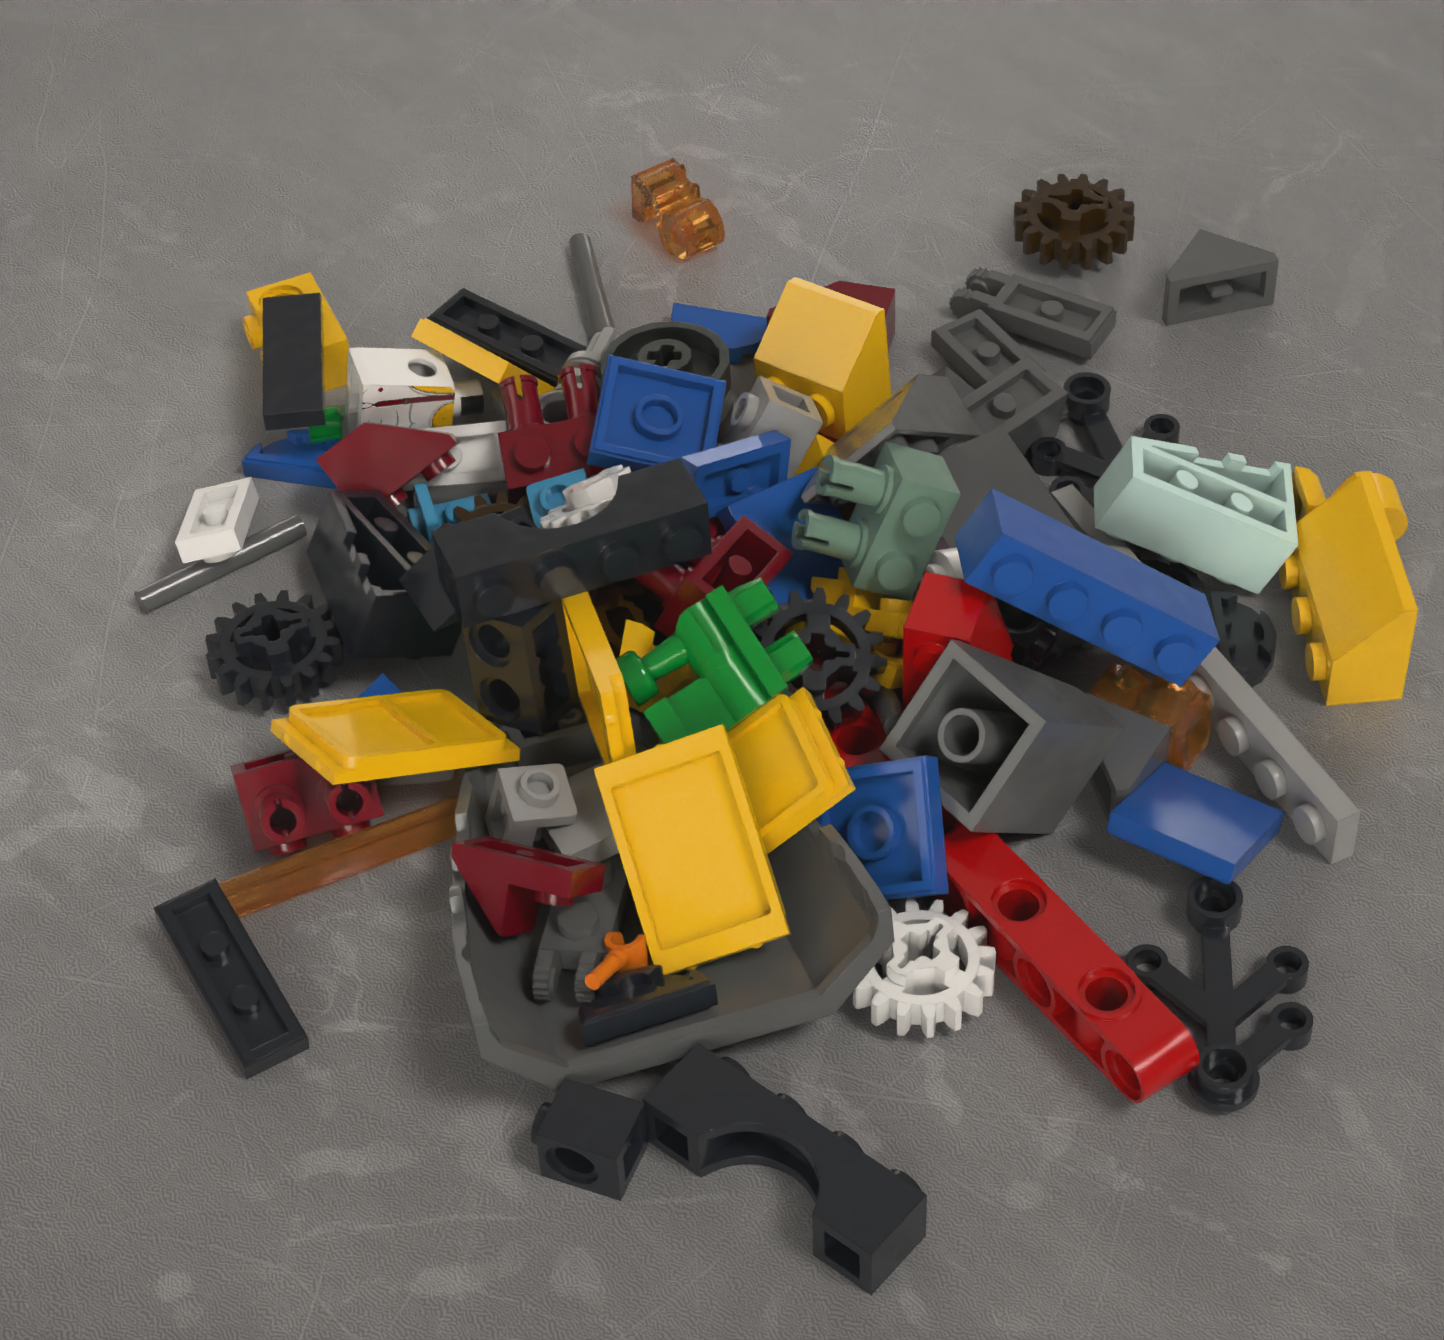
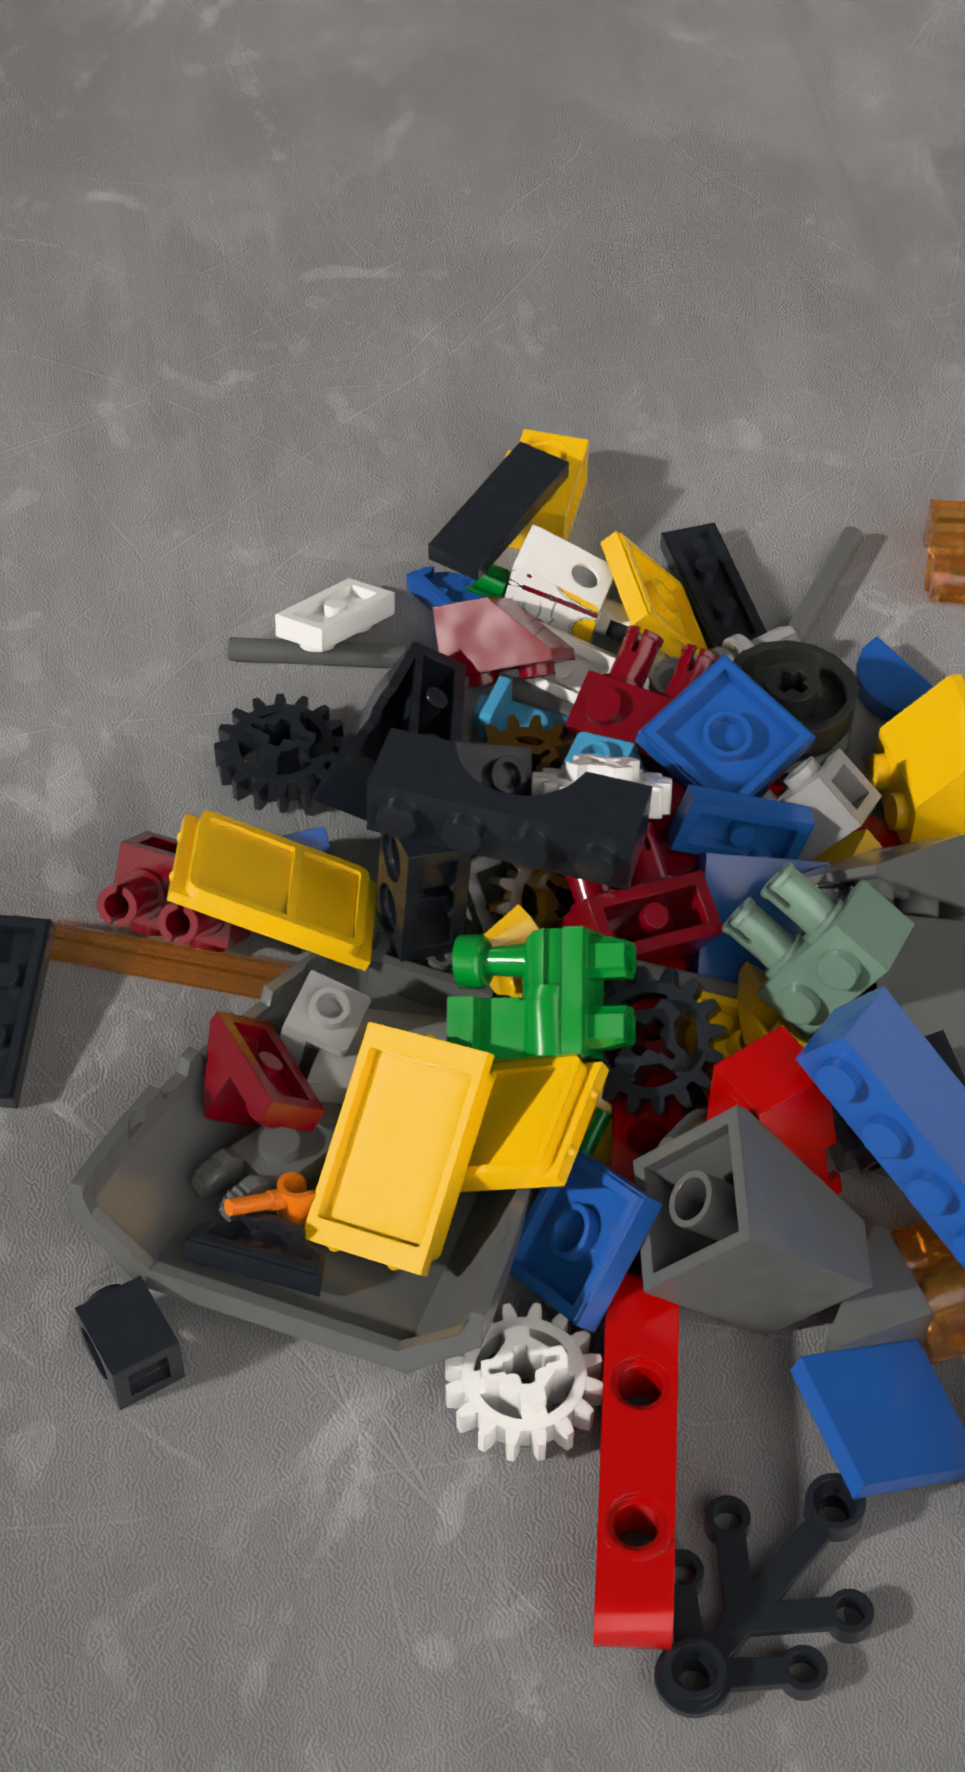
camera: 35 degrees right, 5 degrees up
(598, 680) = (425, 964): yellow piece -> none
(719, 1117) = (266, 1561): black arch -> none

